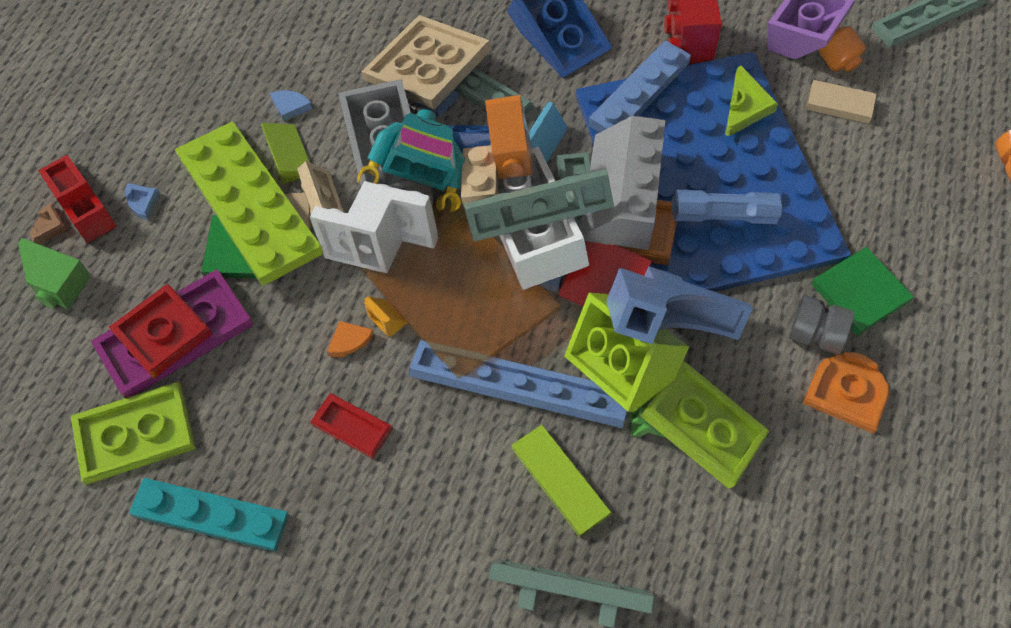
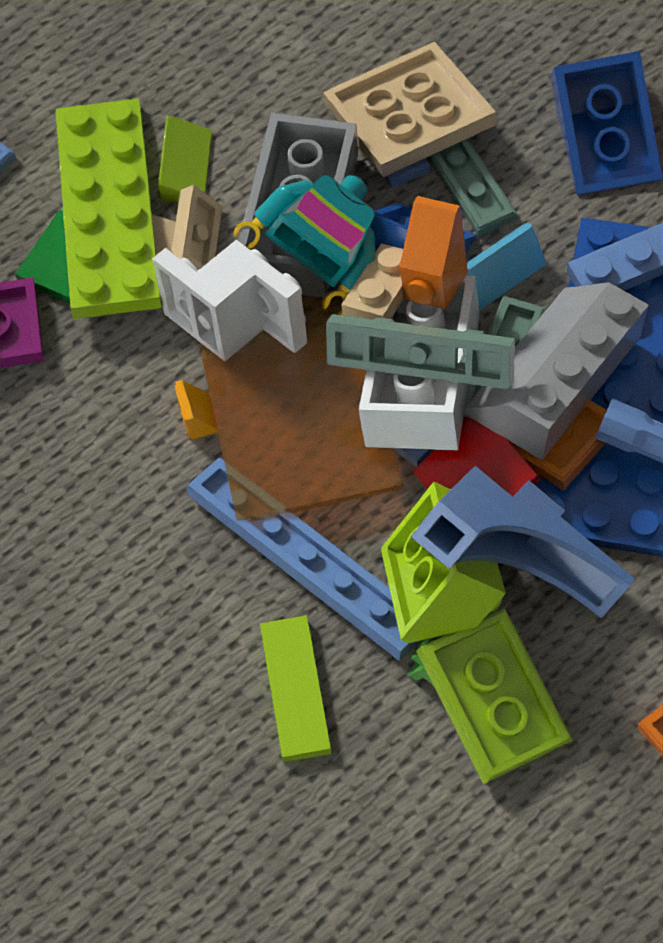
camera: 30 degrees right, 0 degrees up
(290, 103) = (218, 101): medium blue tile -> none
(348, 339) = (141, 422): orange tile -> none
(351, 425) = (95, 524): red tile -> none
(607, 593) = (203, 781): sand green hinge -> none

